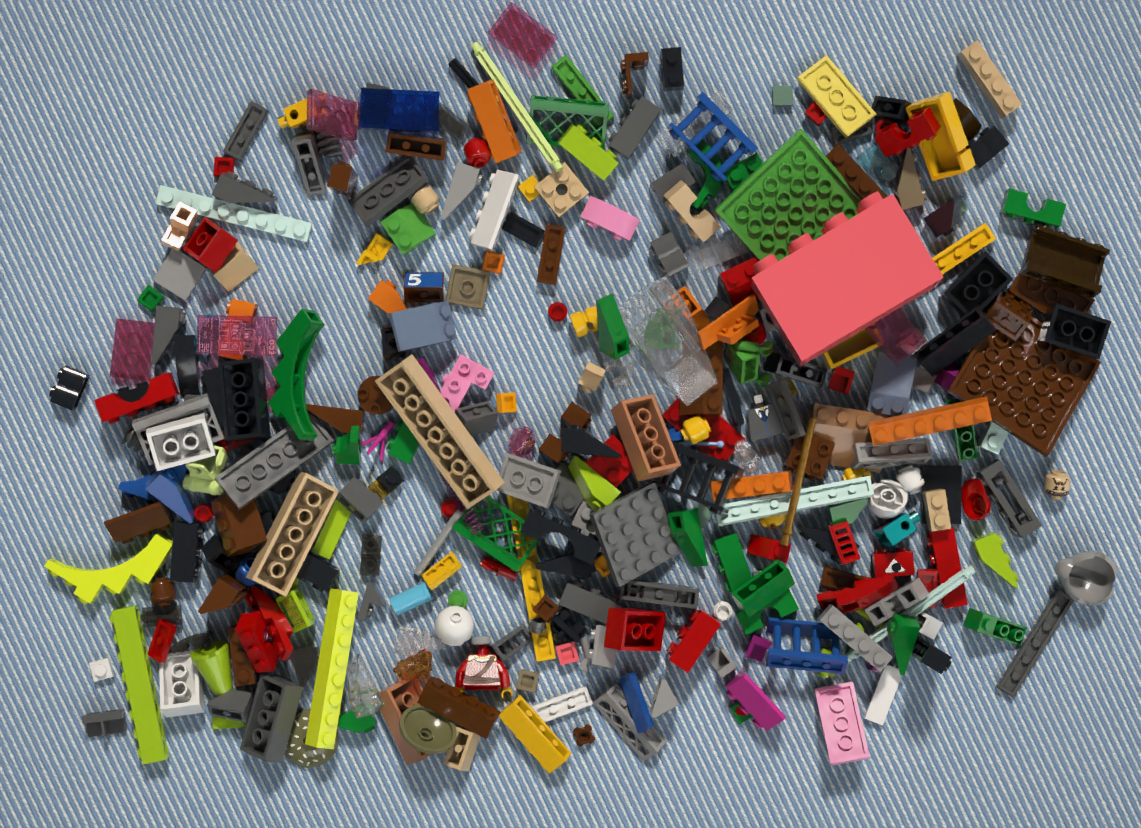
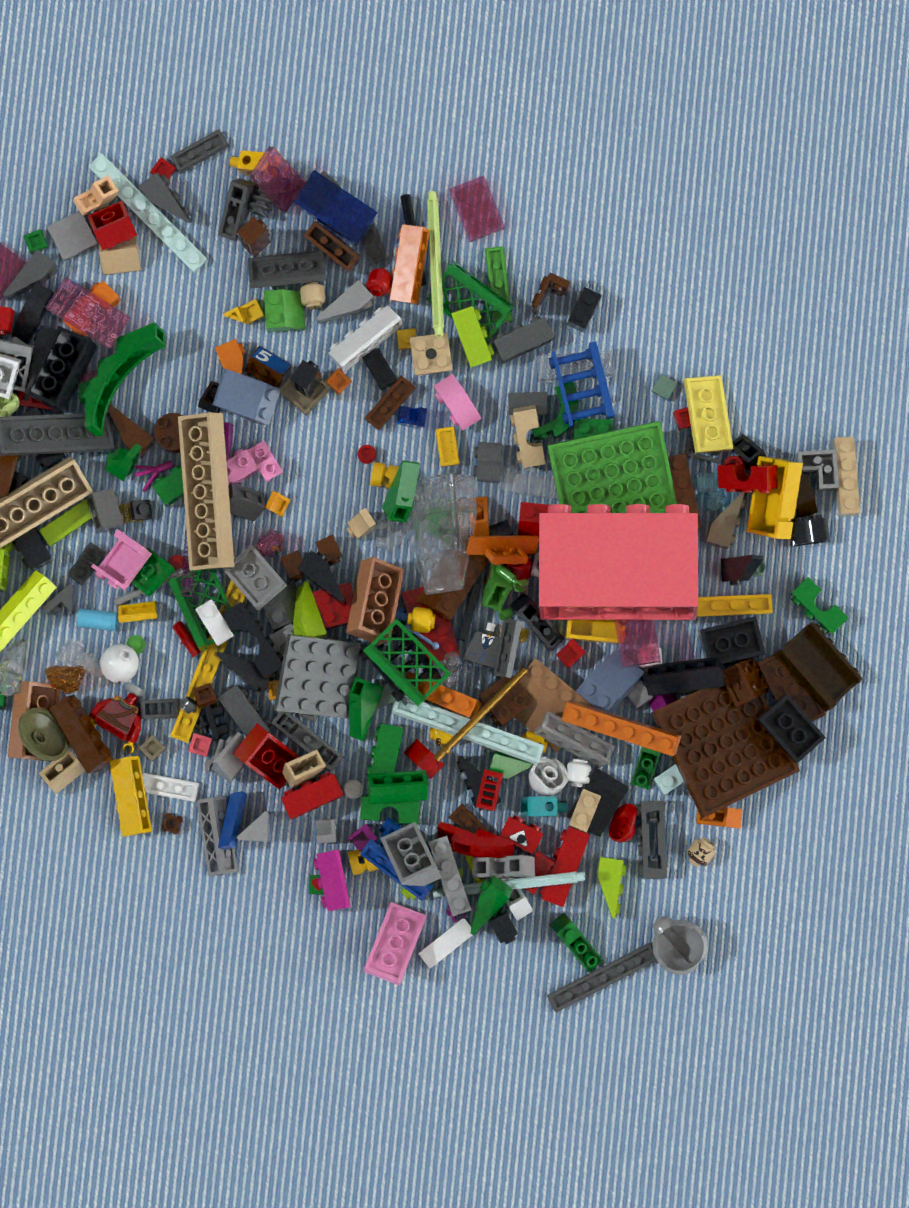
camera: 35 degrees right, 5 degrees down
(402, 536) = (122, 562): none -> bright pink panel
(430, 531) = (152, 574): none -> green plate
(467, 278) = (306, 378): none -> black brick
(517, 541) = (214, 622): none -> white slope
(578, 255) = (412, 417): none -> clear blue panel
(624, 262) = (447, 446): none -> yellow plate
(671, 624) = (299, 770): none -> tan torso
(704, 493) = (392, 671): none -> green fence
(767, 677) = (358, 868): none -> yellow wheel
(813, 643) = (411, 856): none -> light grey slope
(966, 82) = (823, 464): none -> light grey brick
(1065, 442) = (725, 817): none -> orange slope

